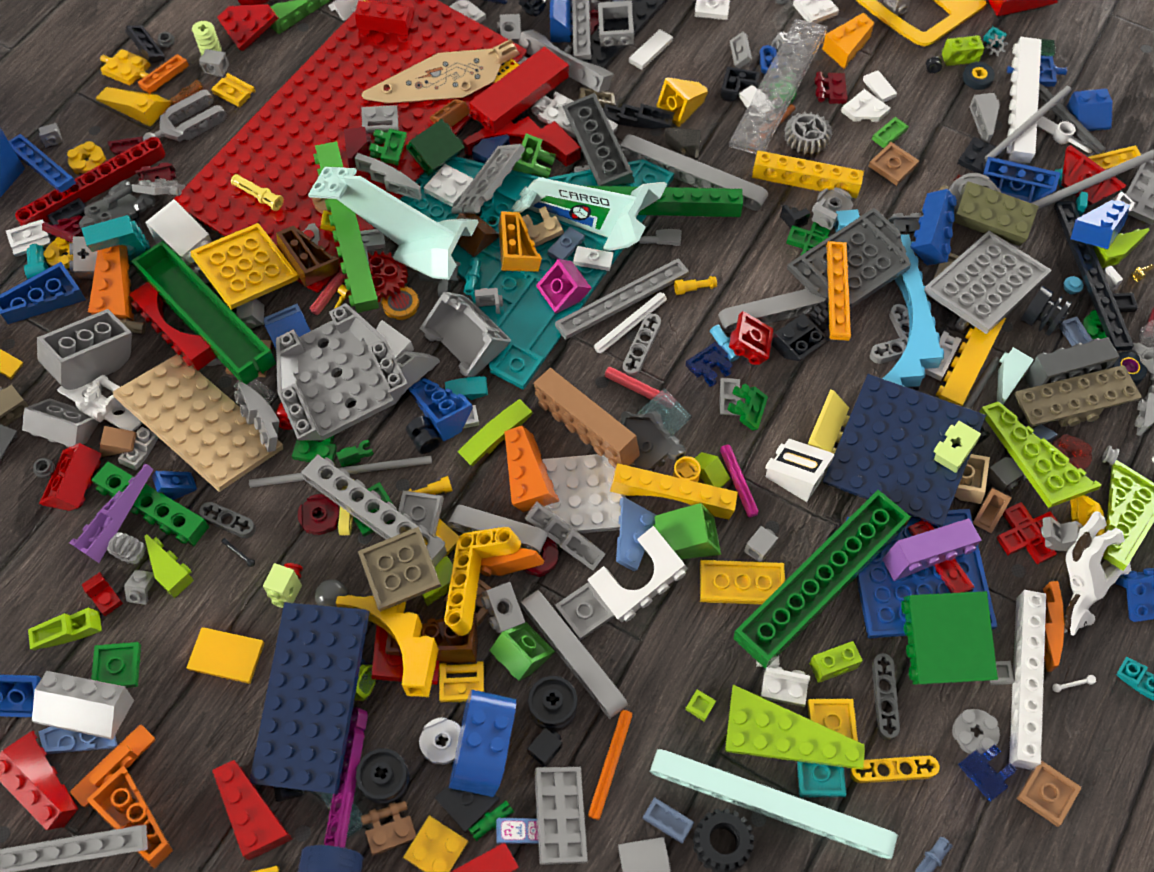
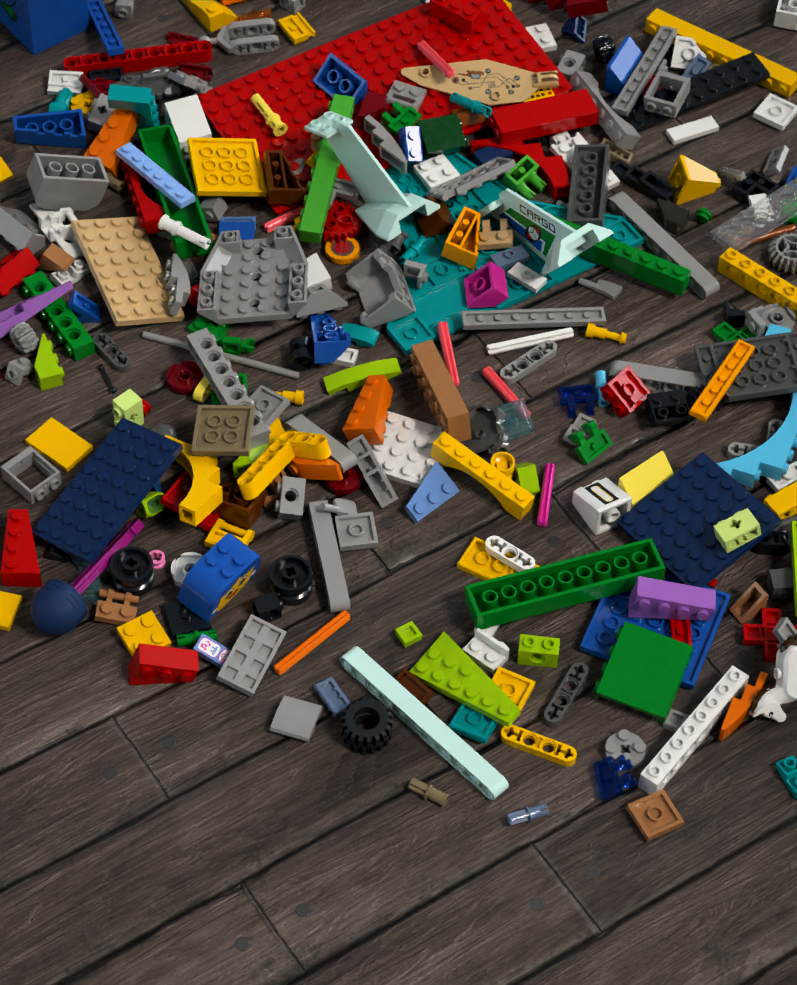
camera: 25 degrees right, 10 degrees down
(87, 150) = (137, 33): yellow plate -> none
(176, 305) = (155, 175): none -> light blue plate
(196, 699) = (24, 461): none -> light grey window
(232, 357) = (177, 229): none -> white pin
(310, 128) = (340, 79): none -> blue slope
(390, 71) = (436, 59): none -> coral axle
(397, 738) = (158, 554): none -> bright pink bush
(412, 165) = (411, 144): none -> brick
(448, 104) = (474, 105): none -> teal pin
(521, 650) = (288, 535): bright green slope -> none
(557, 591) = (340, 507): none -> light grey piece
(561, 366) = (447, 350): none -> coral axle
(666, 569) = (438, 523): white arch -> none
(689, 531) = (475, 511): bright green slope -> none
(710, 128) = (703, 215): none -> green plate
(713, 77) = (732, 173): none -> light grey axle
(740, 765) = (414, 686): none -> reddish brown tile
(761, 544) = (533, 544): light grey brick -> none
(762, 574) = (506, 547): none -> white beam
(974, 480) = (746, 570): tan slope -> none
(1089, 679) = (750, 760): white hinge -> none

